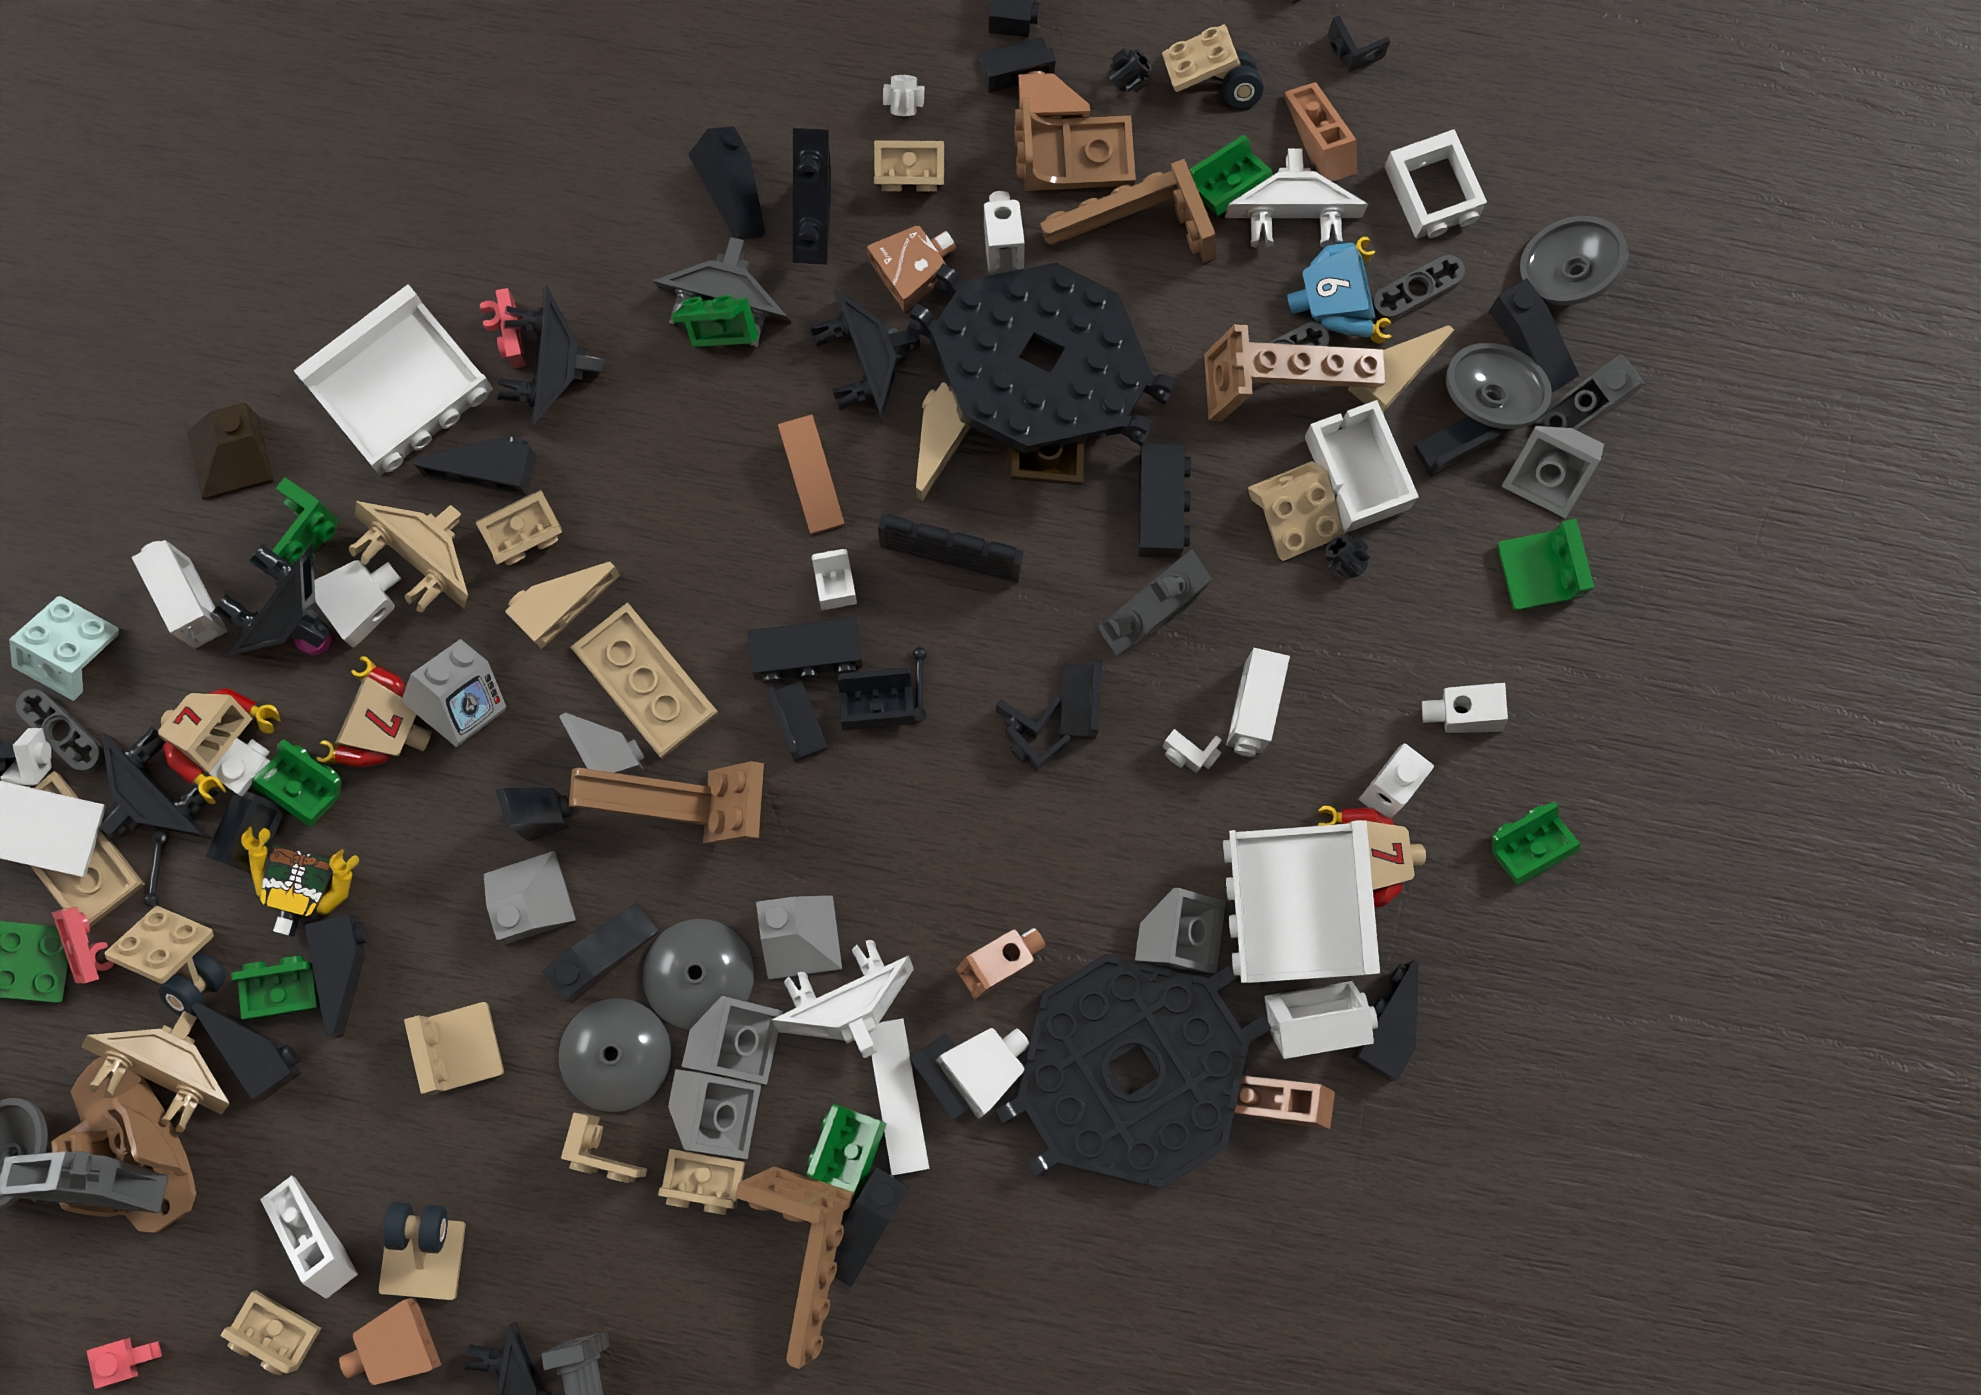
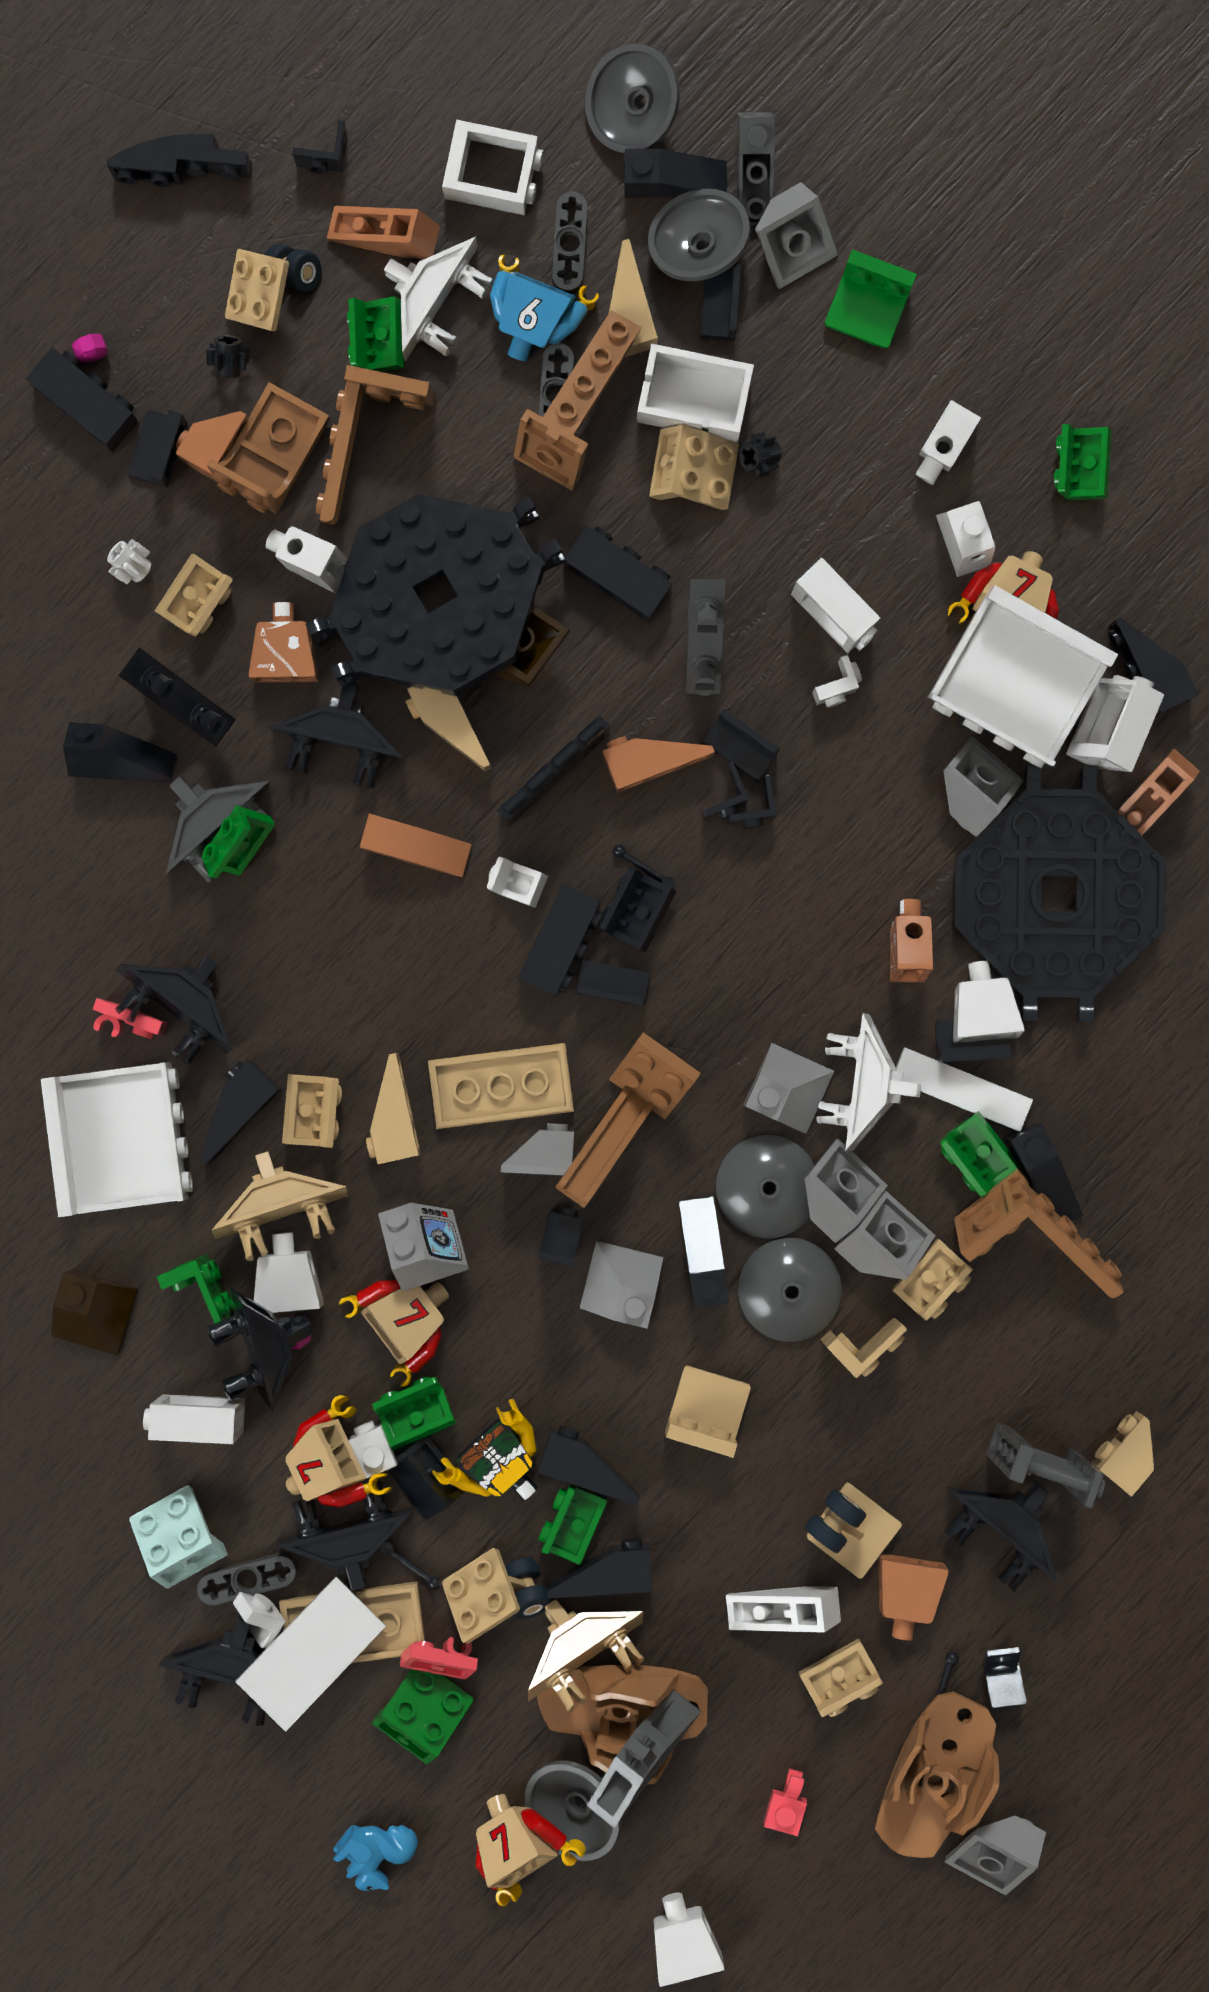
camera: 55 degrees left, 10 degrees up
(1011, 622) = (644, 759): none -> nougat slope

